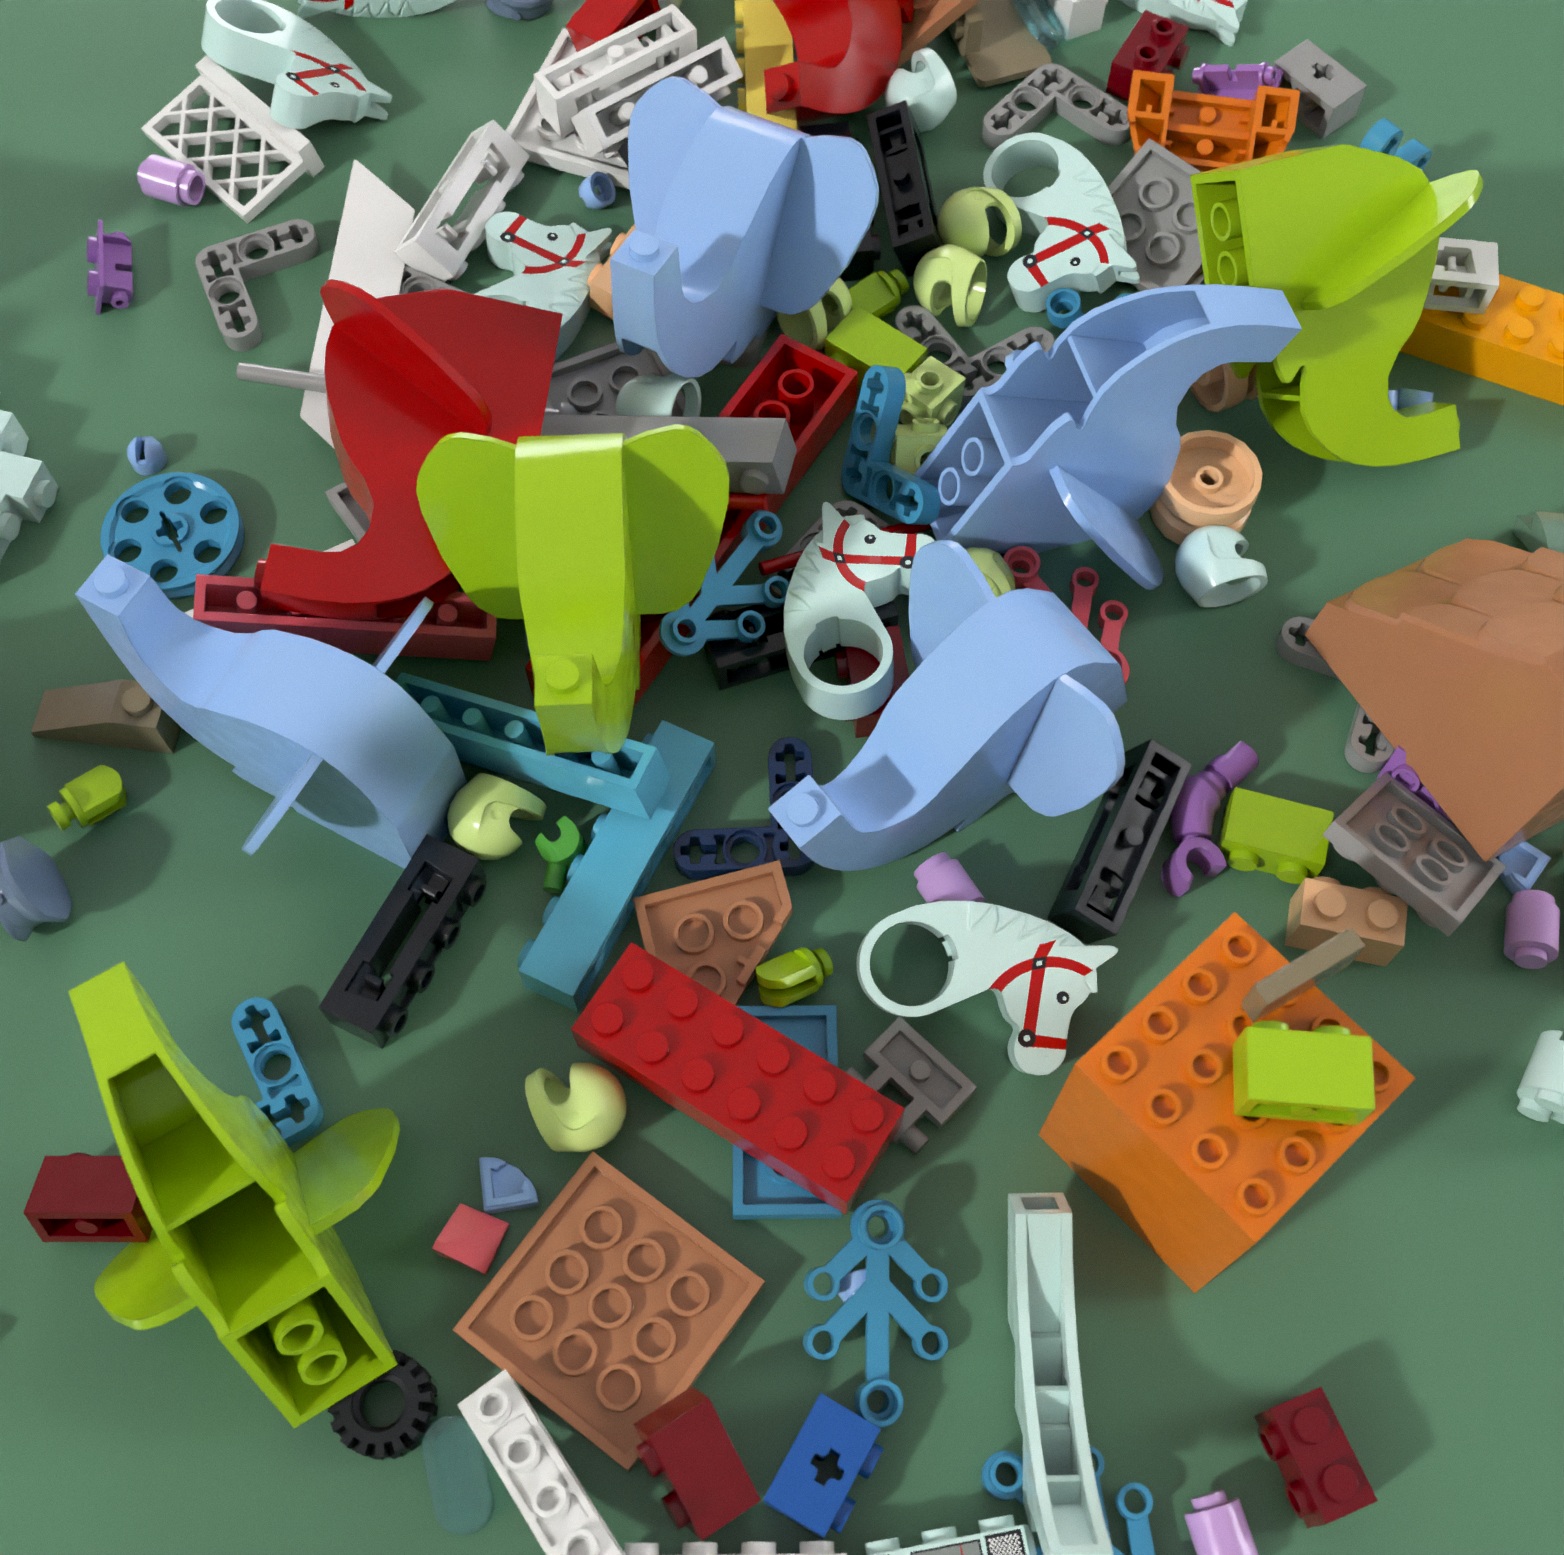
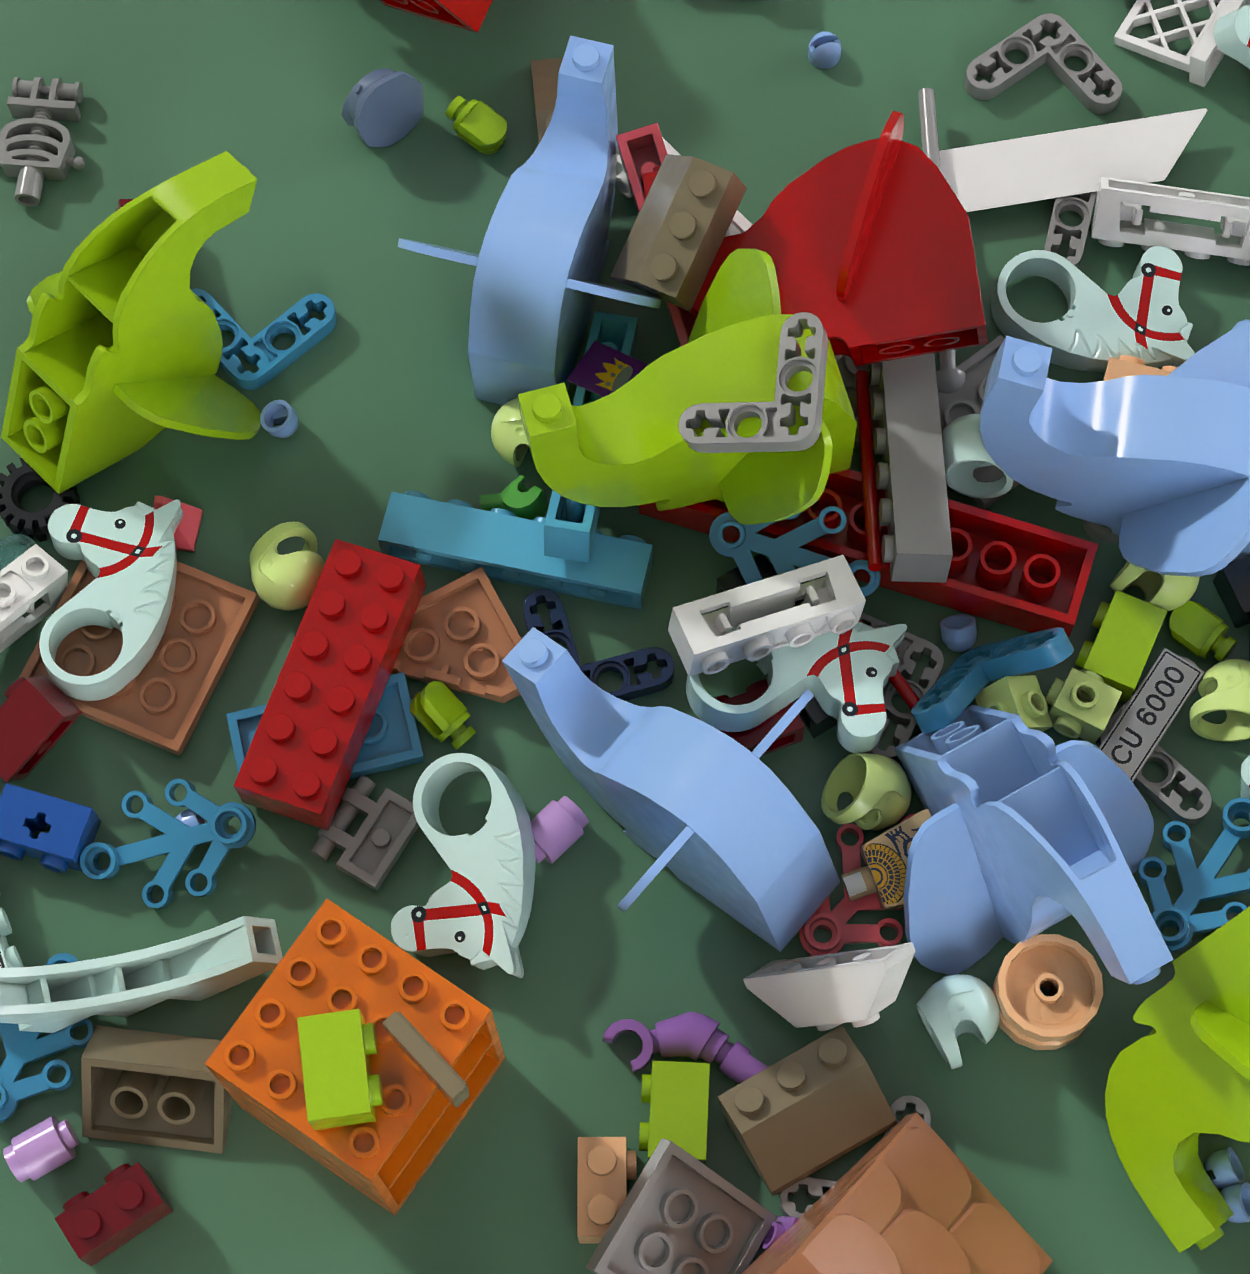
camera: 80 degrees right, 5 degrees up
(186, 519) = (747, 115): dark azure wedge -> none
(343, 564) = (679, 229): none -> dark tan slope
(358, 996) = (345, 398): black brick -> none
(369, 1083) = (279, 413): none -> light blue hinge
(469, 700) = (605, 369): none -> dark purple sticker
(505, 1187) = (222, 539): light blue tile -> none
(536, 1283) = (133, 589): none -> light aqua animal
(639, 468) = (775, 415): none -> light grey beam
(811, 666) = (766, 616): none -> white brick
(823, 483) = (959, 632): none -> light blue hinge
(949, 344) = (1150, 712): none -> light grey tile
(1061, 562) = (885, 864): none -> torso
(1119, 843) = (631, 968): black brick -> none
(1168, 1378) = (153, 1090): none -> dark tan slope
(1178, 645) = (833, 986): none -> white wedge
(1291, 716) = (807, 1110): none -> dark tan slope

